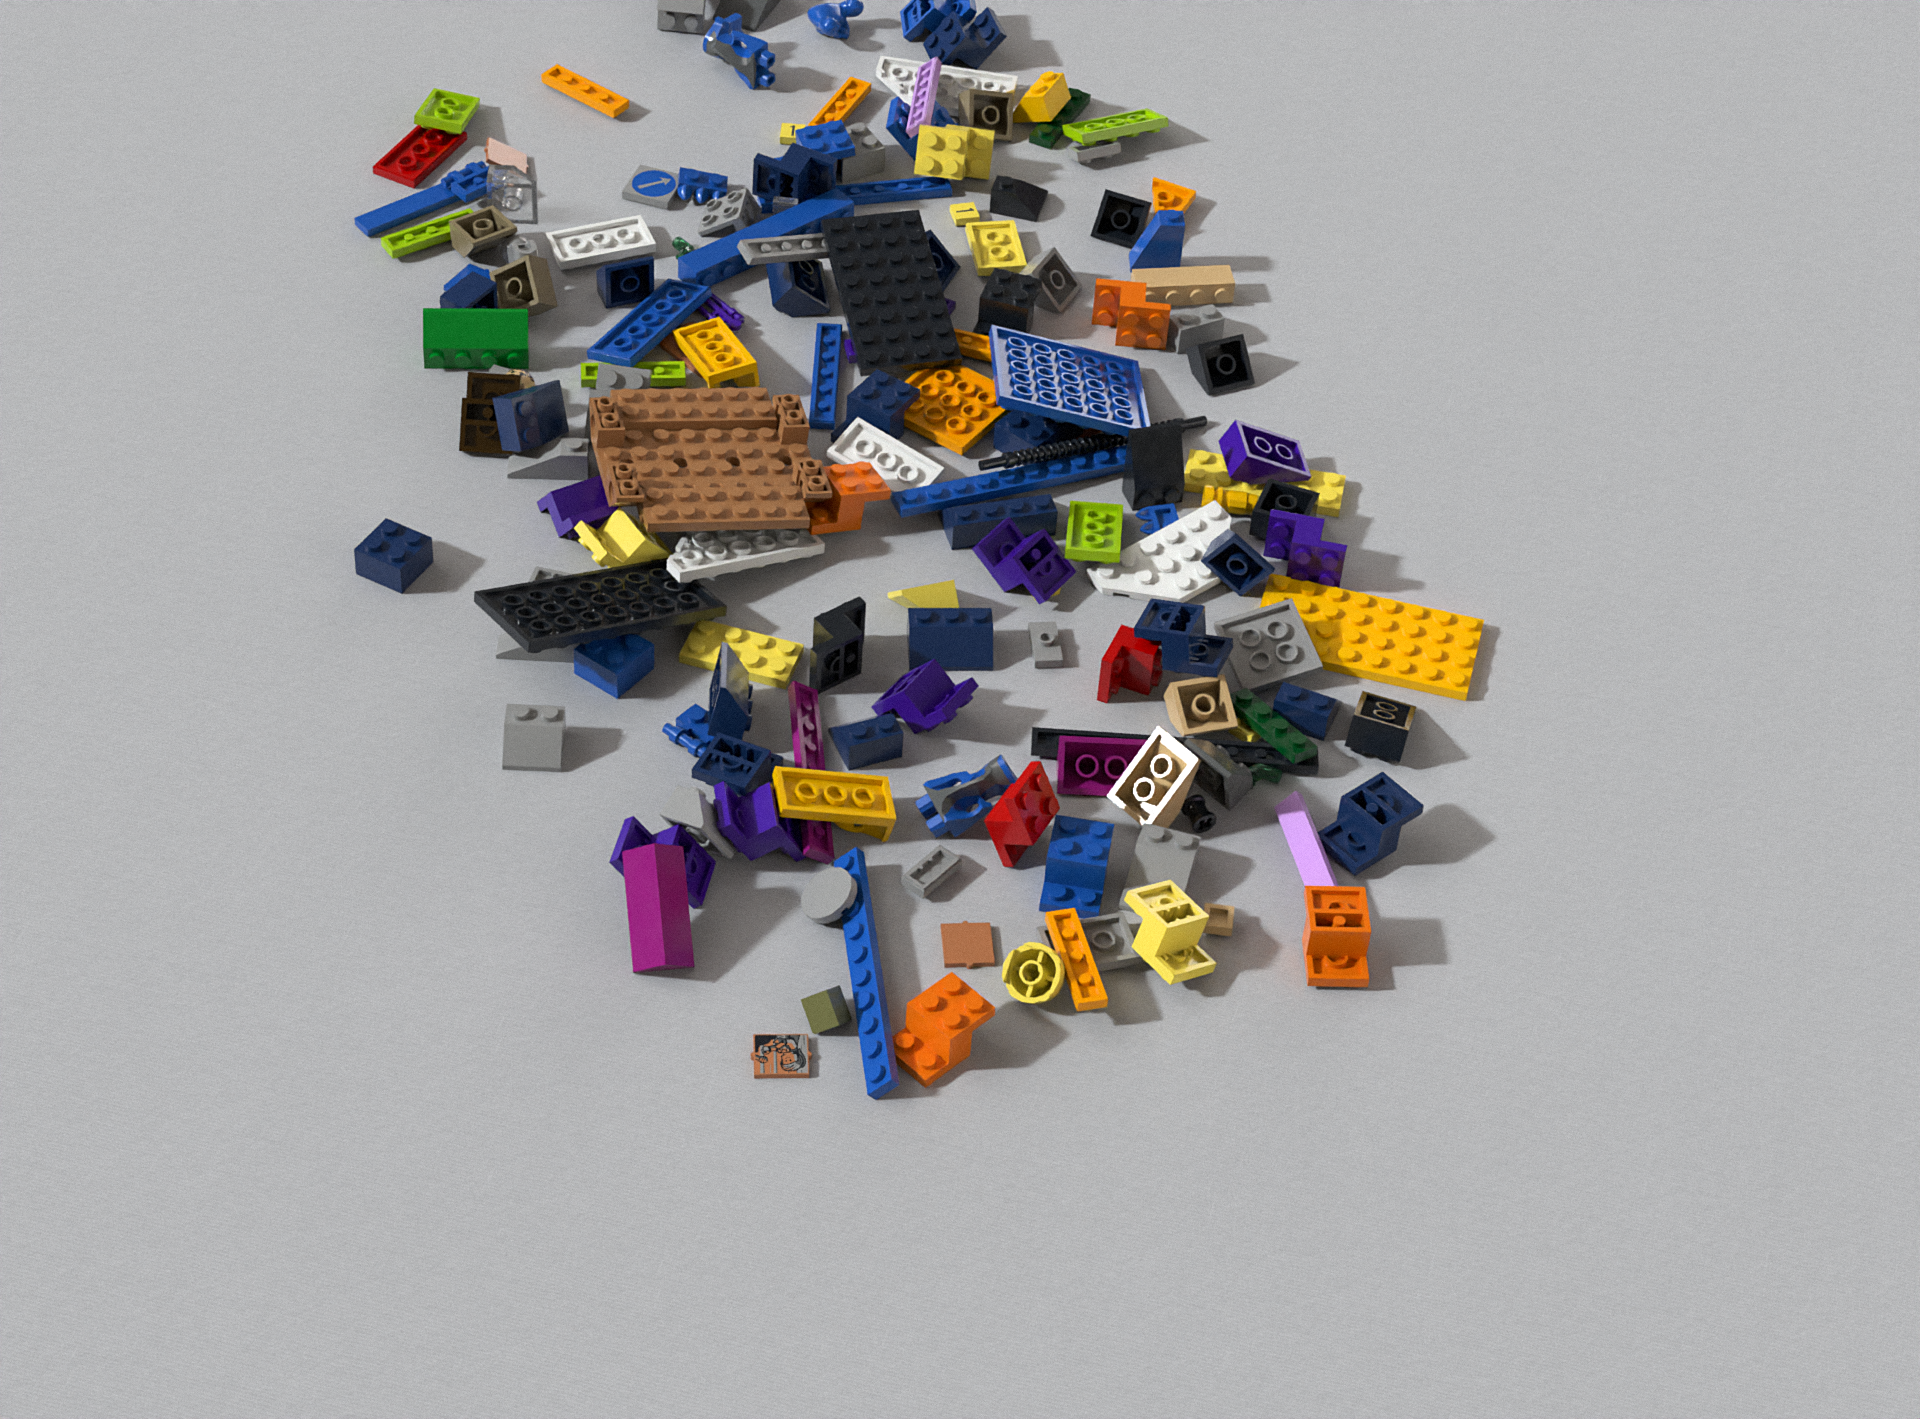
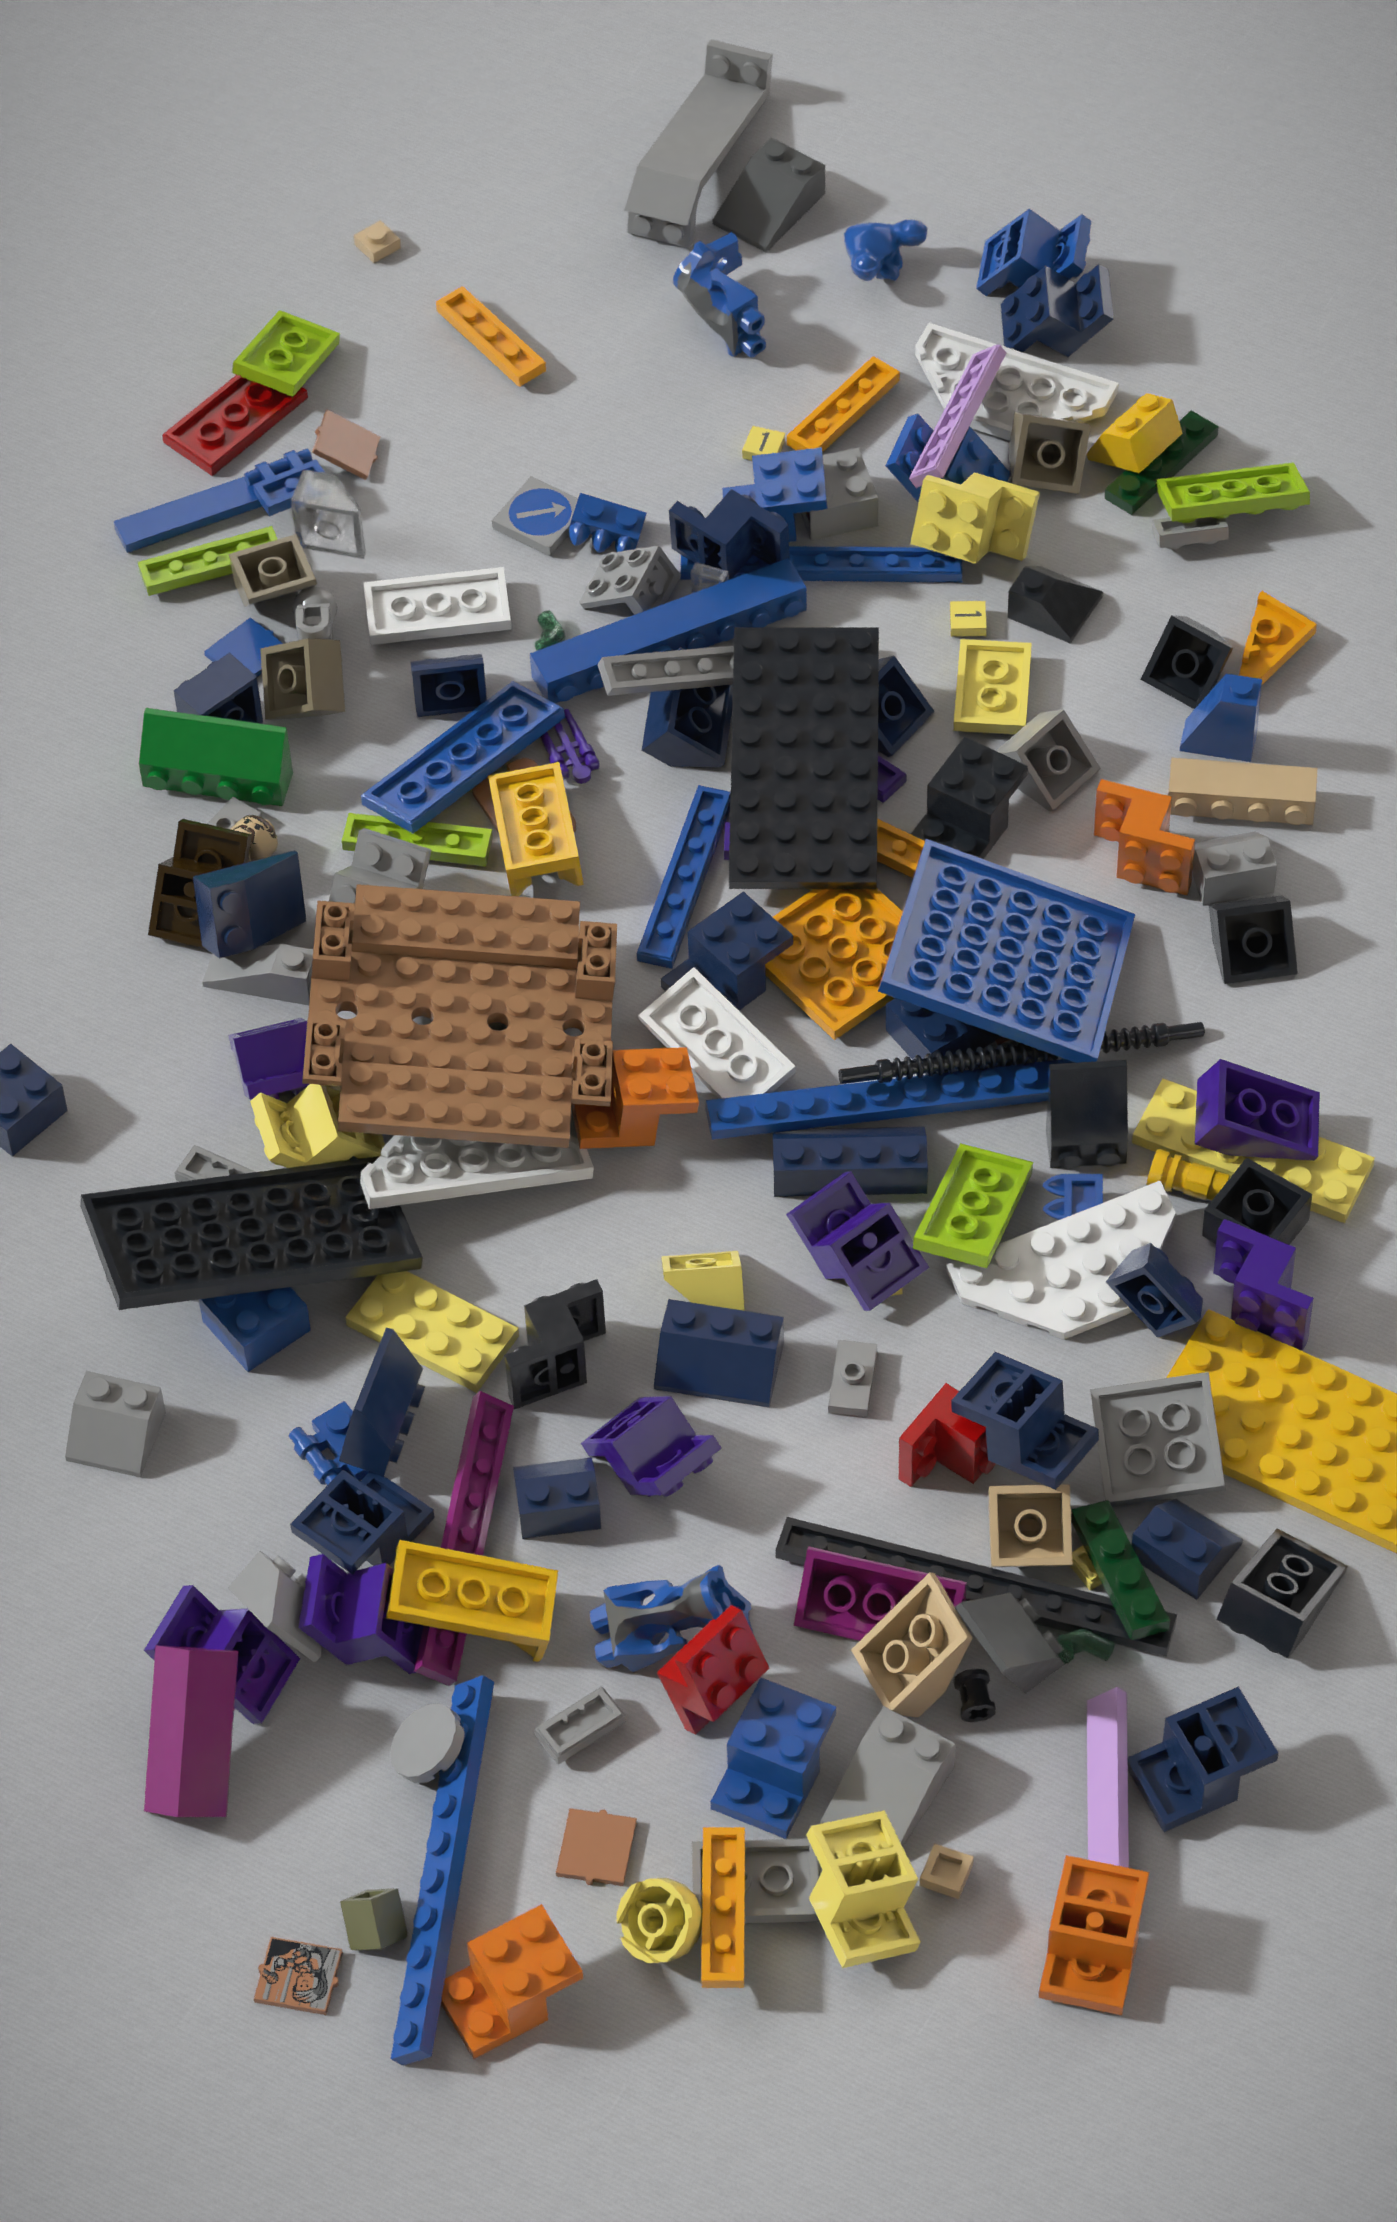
camera: 20 degrees right, 10 degrees up
(486, 48) = (377, 241): none -> tan plate

